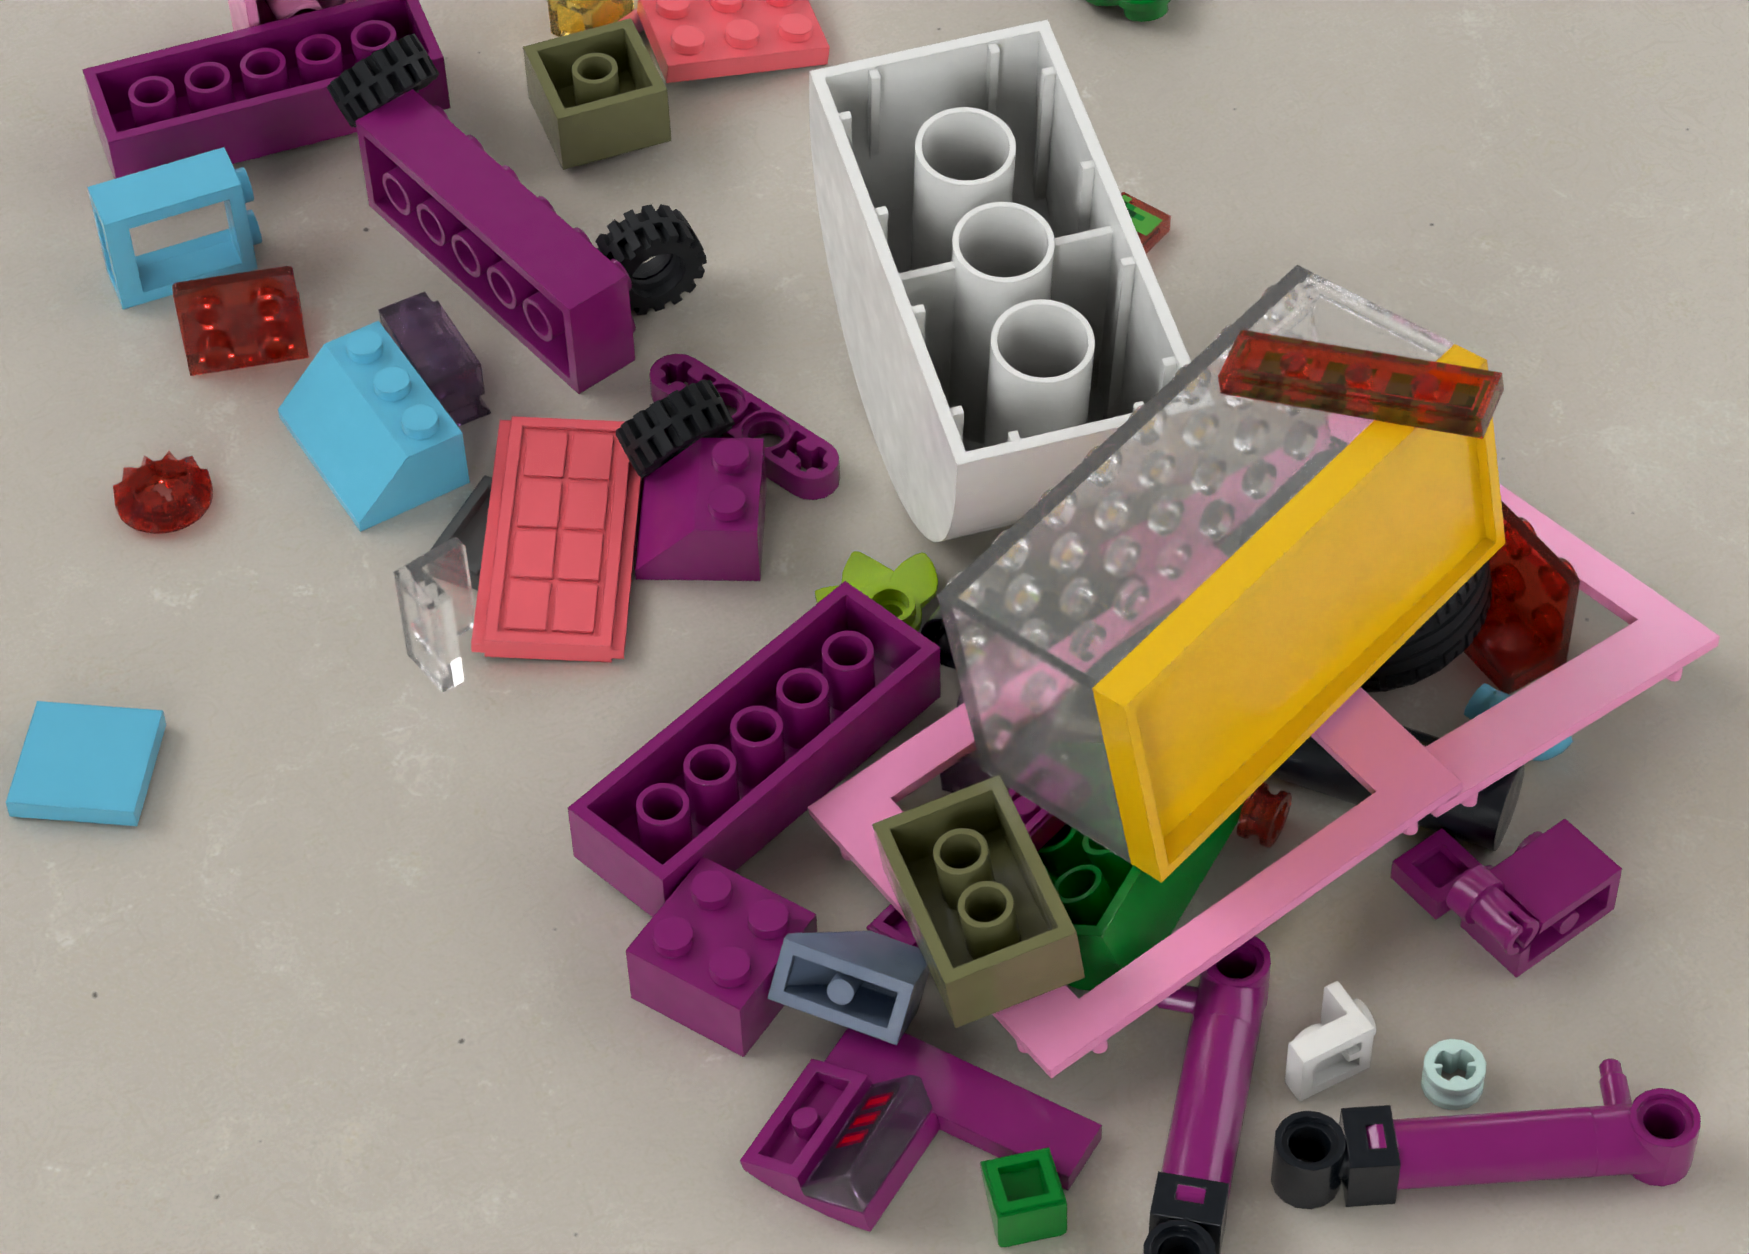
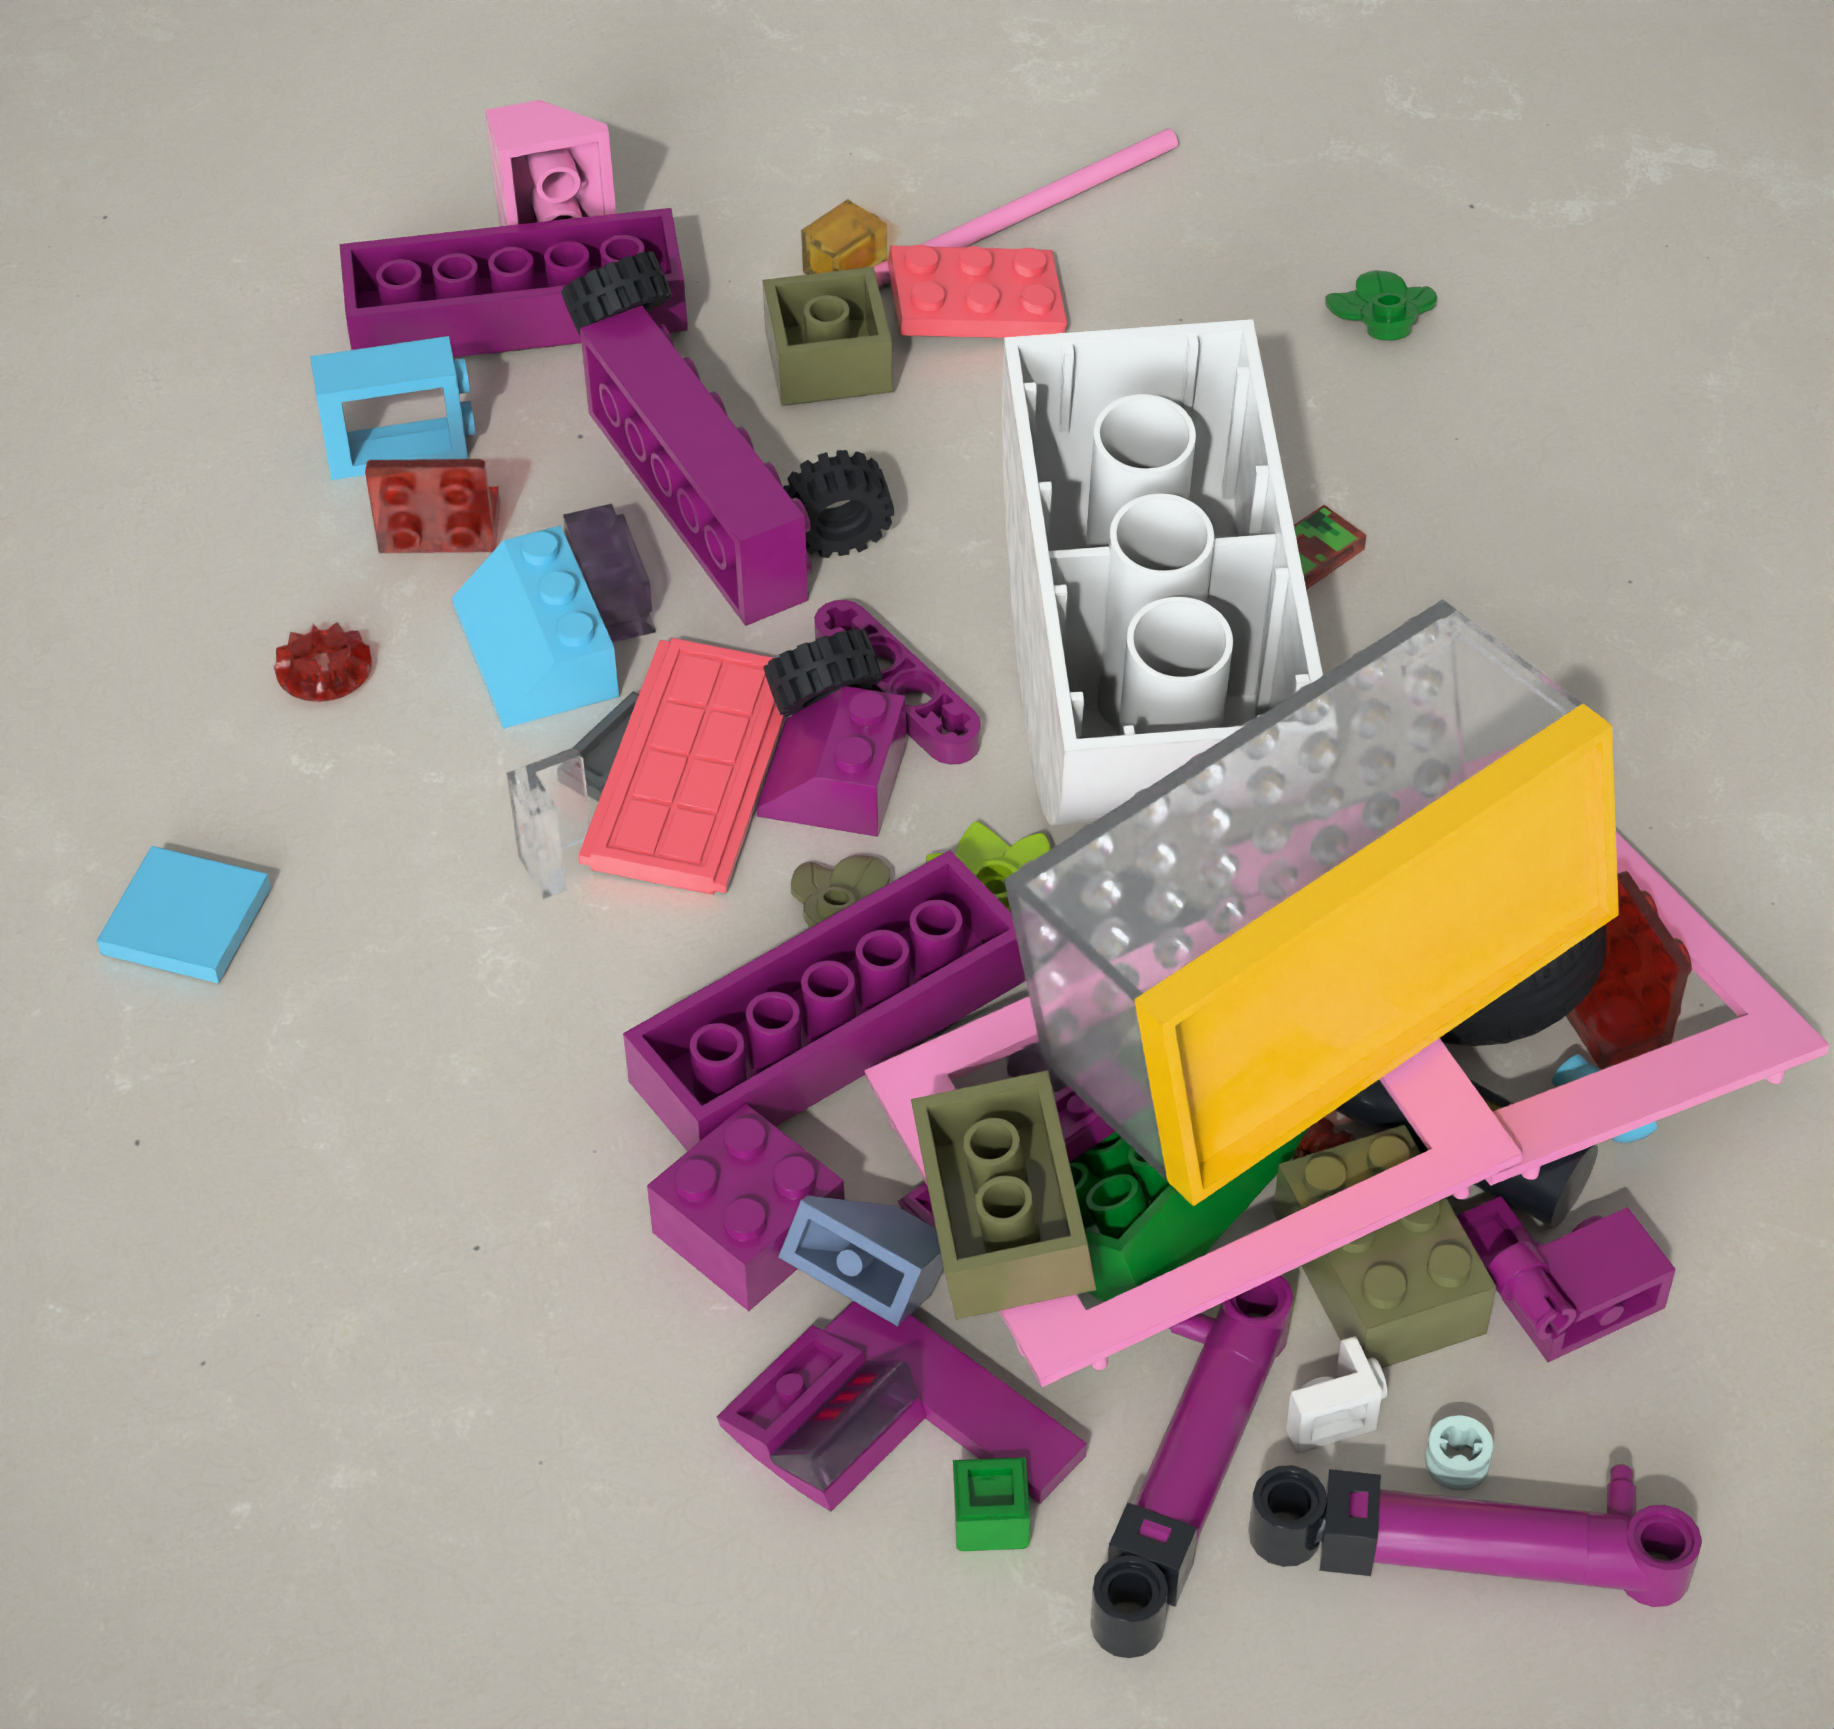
camera: 10 degrees right, 0 degrees up
(735, 639) = (832, 890): none -> olive plate
(1361, 383) = (1478, 730): clear red tile -> none
(1370, 925) = (1399, 1286): none -> olive brick

